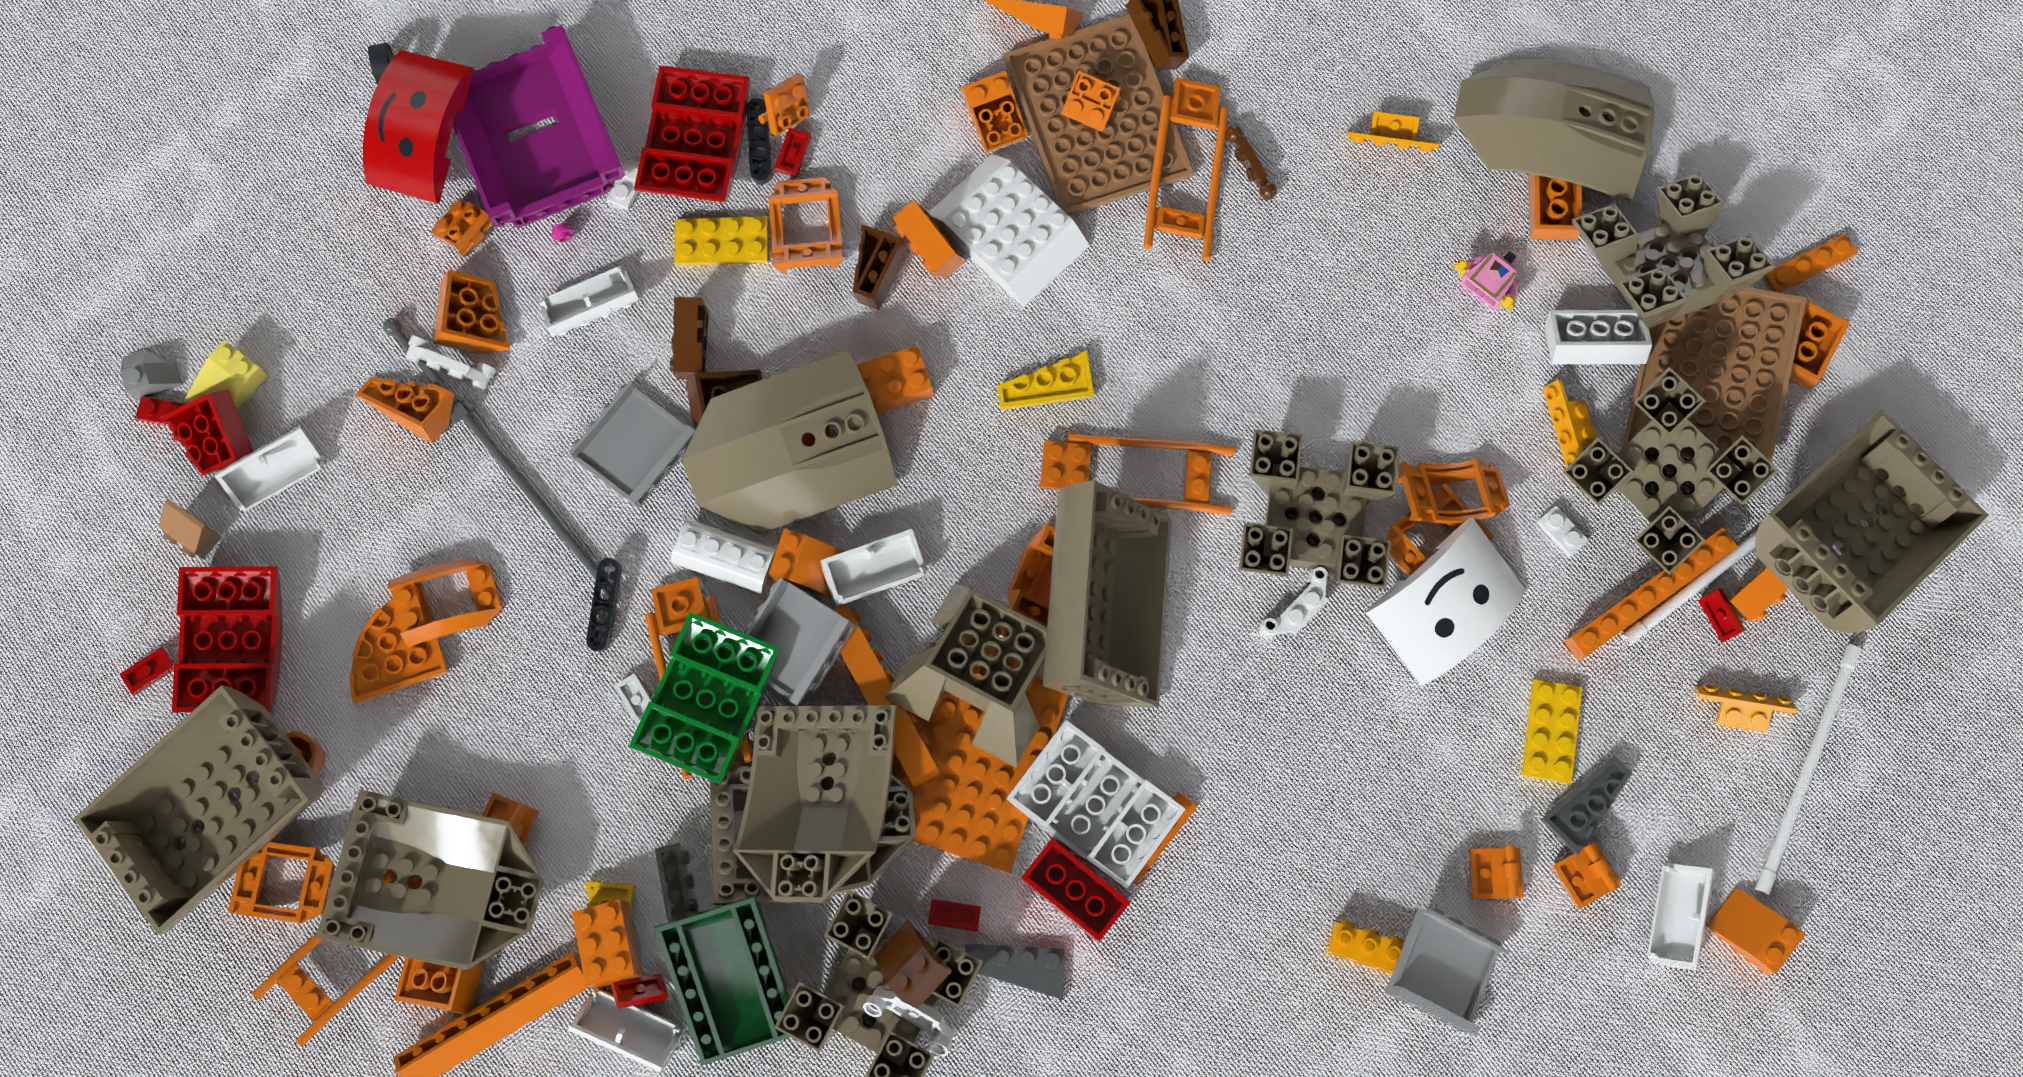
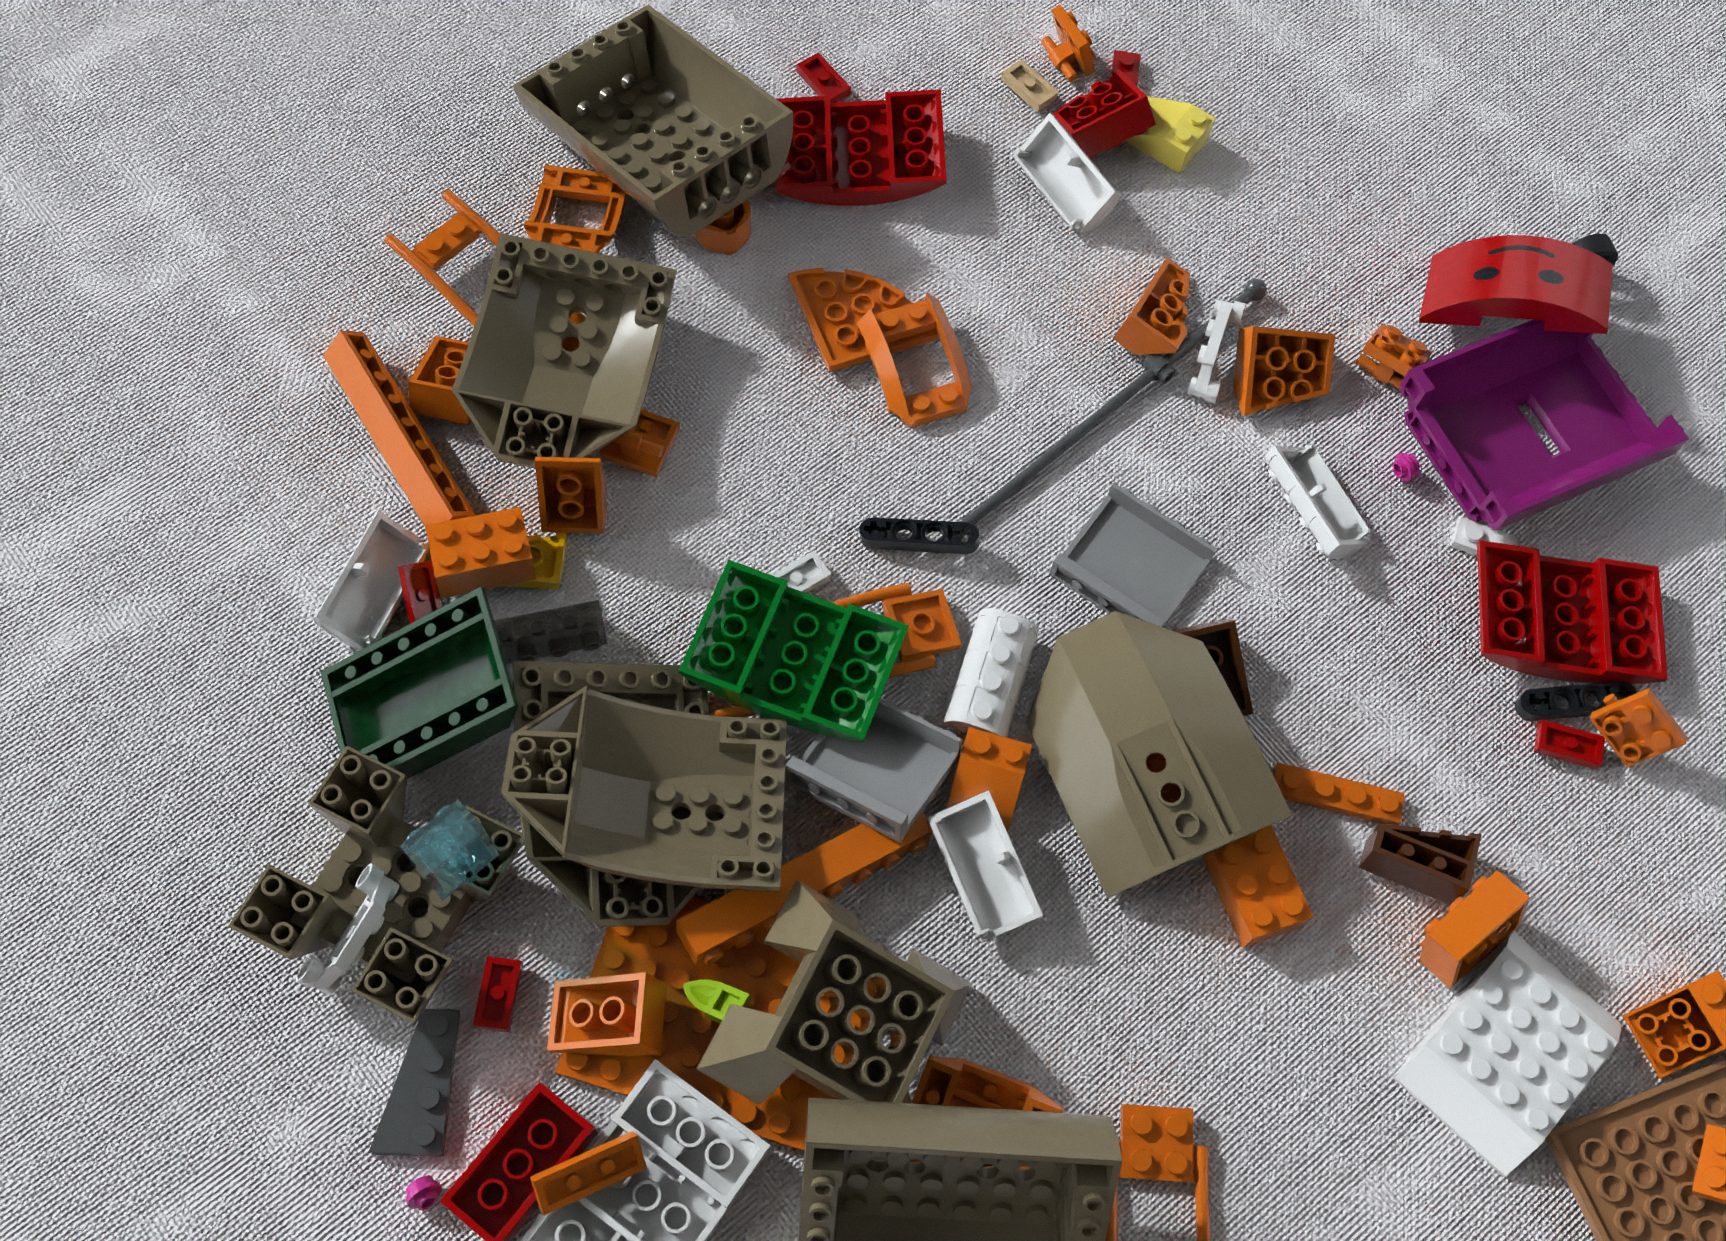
camera: 80 degrees right, 10 degrees down
(134, 455) = (1074, 45): none -> orange plate
(148, 374) = (1166, 58): light grey slope -> none
(174, 488) = (1029, 85): none -> tan plate
(187, 530) = (987, 102): medium nougat slope -> none
(564, 873) = (571, 494): none -> orange slope
(689, 337) = (1287, 620): reddish brown wedge -> none
(721, 241) = (1426, 660): yellow plate -> none
(805, 253) = (1426, 769): orange wedge -> none
(824, 317) = (1339, 794): none -> orange plate
(861, 933) = (449, 849): none -> clear light blue brick
(911, 965) = (410, 922): reddish brown slope -> none
(964, 758) = (715, 997): none -> lime plate
(974, 833) = (608, 1015): none -> orange slope
(1052, 384) = (1283, 1131): yellow wing -> none
(1082, 840) = (588, 1172): none -> orange plate
(1090, 959) = (423, 1193): none -> dark pink plate

